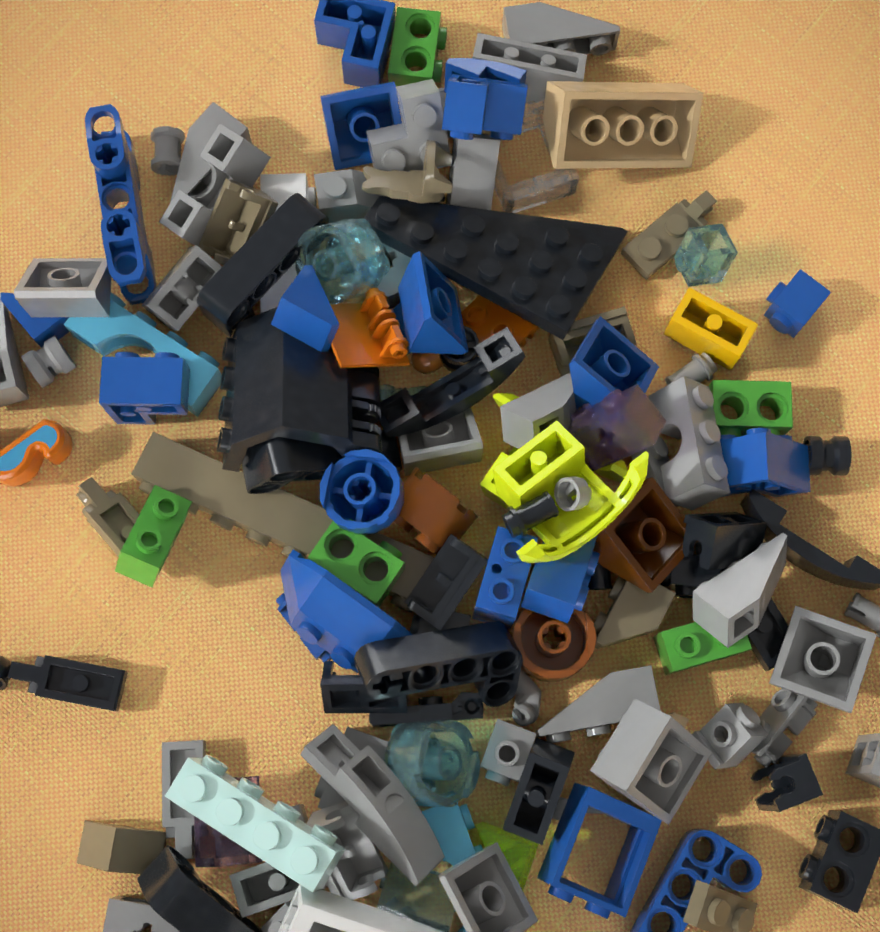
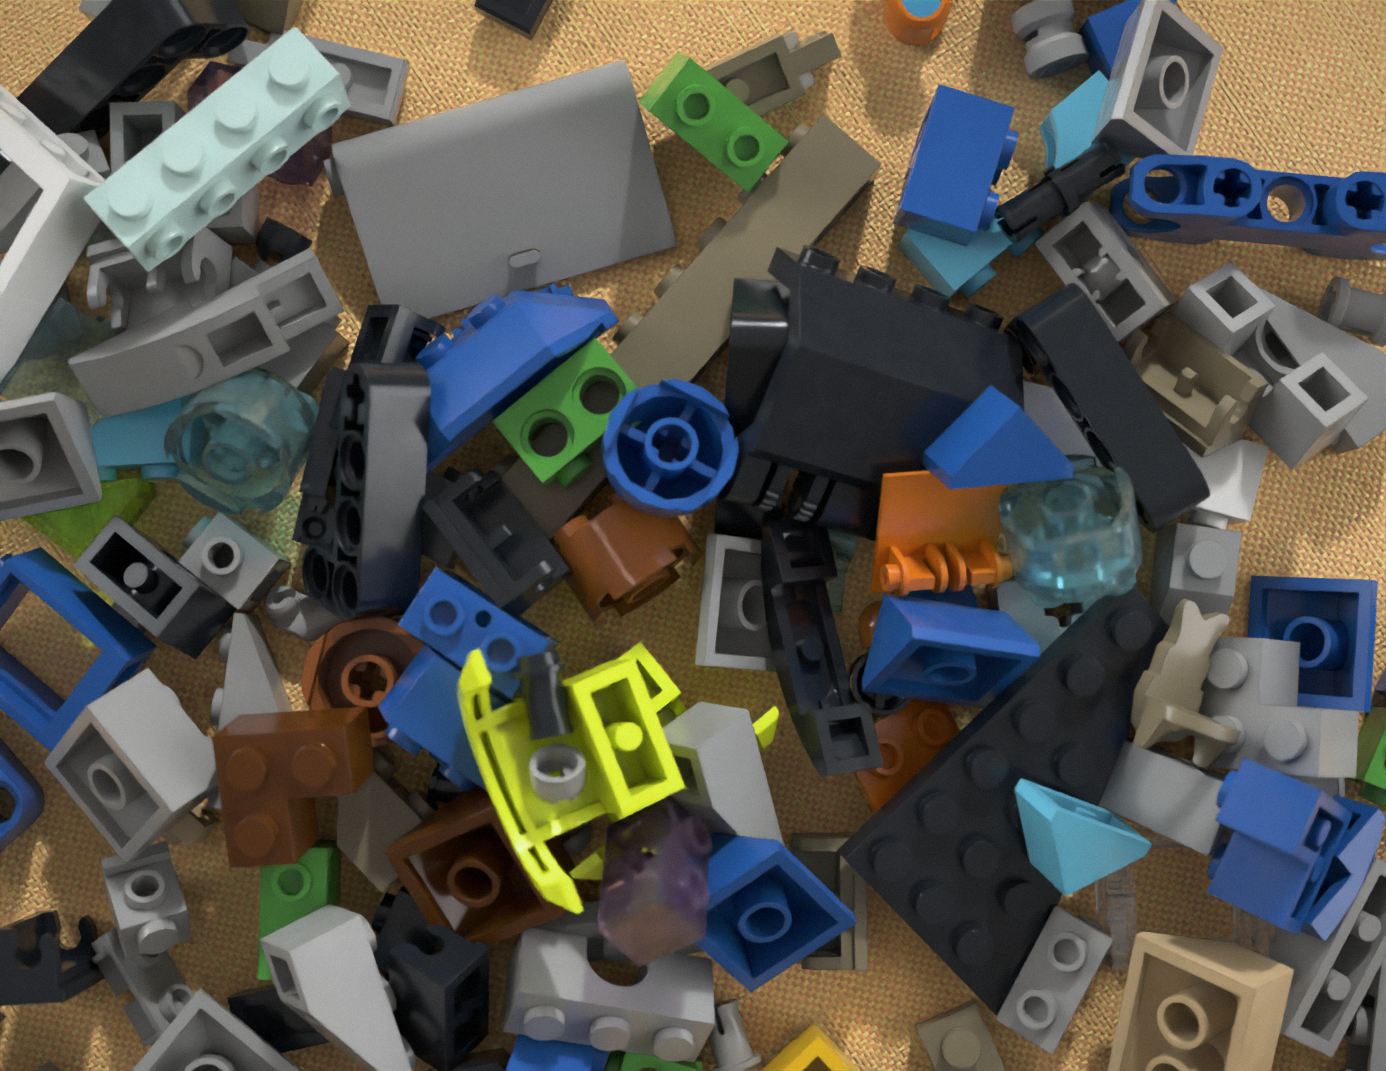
camera: 105 degrees right, 10 degrees up
(143, 322) = (1059, 190): none -> black pin
(224, 668) = (509, 174): none -> light grey door
(300, 786) = (281, 239): none -> black hinge
(514, 213) = (1074, 839): none -> medium azure slope
(594, 207) = (1055, 978): none -> light grey hinge
(621, 669) = (274, 769): none -> reddish brown brick

